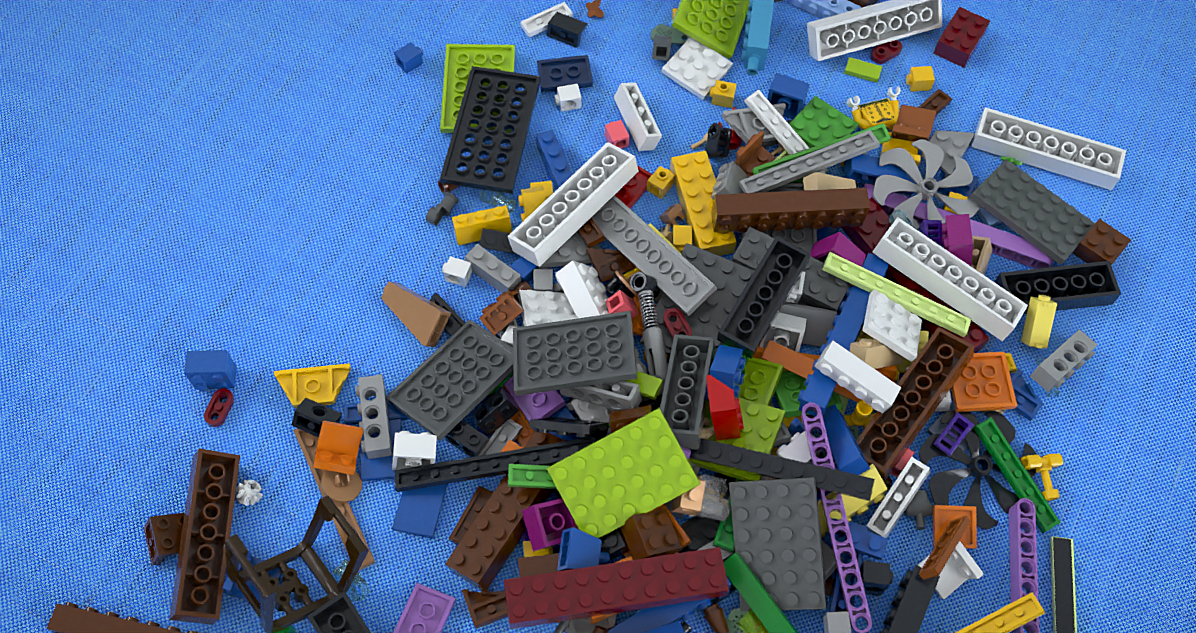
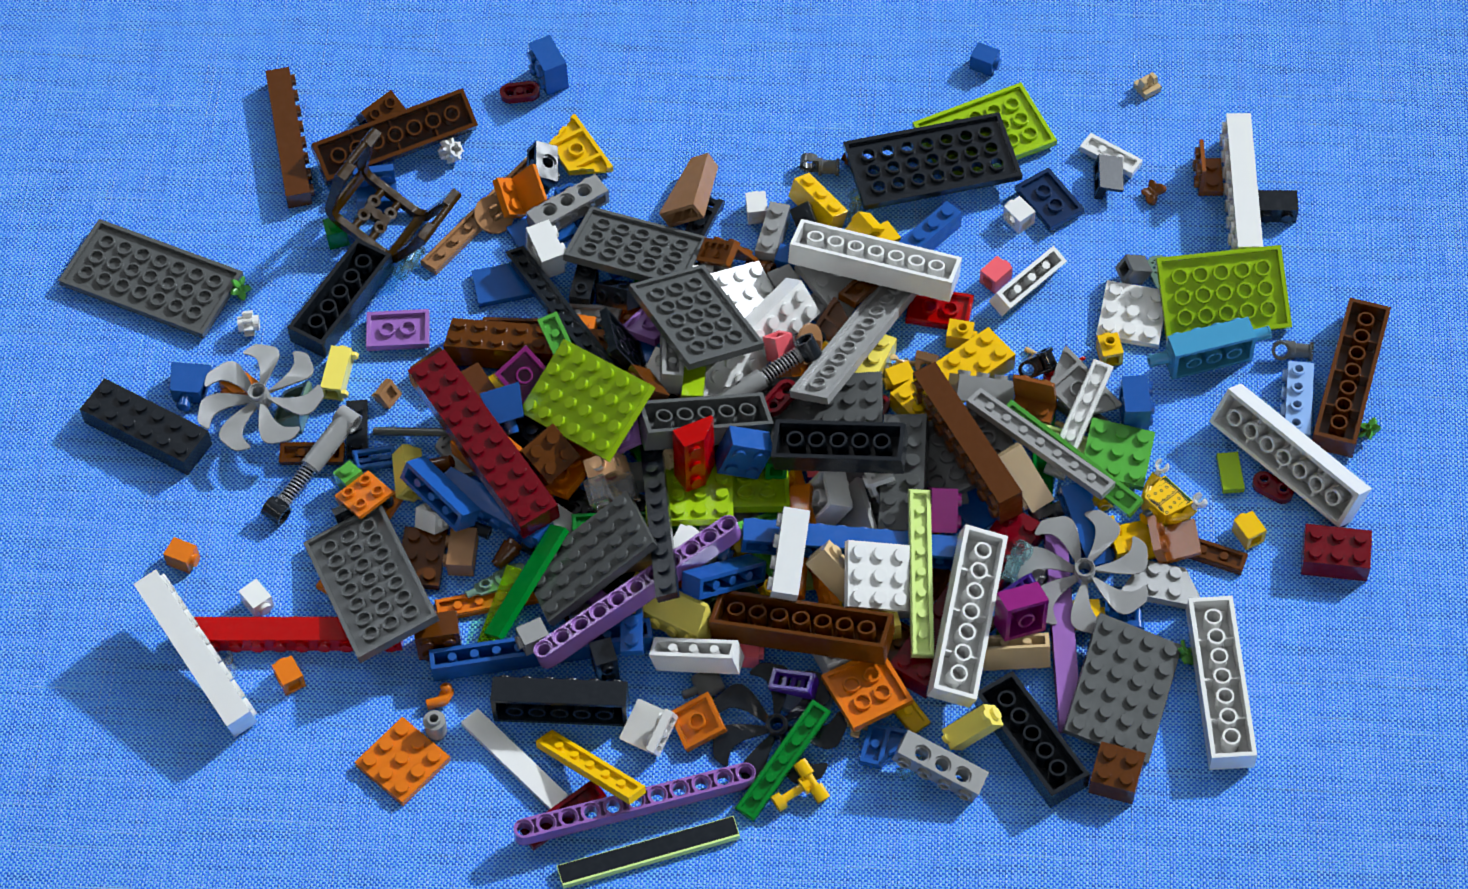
camera: 70 degrees right, 5 degrees down
(944, 547) = (657, 700): dark orange tile -> none

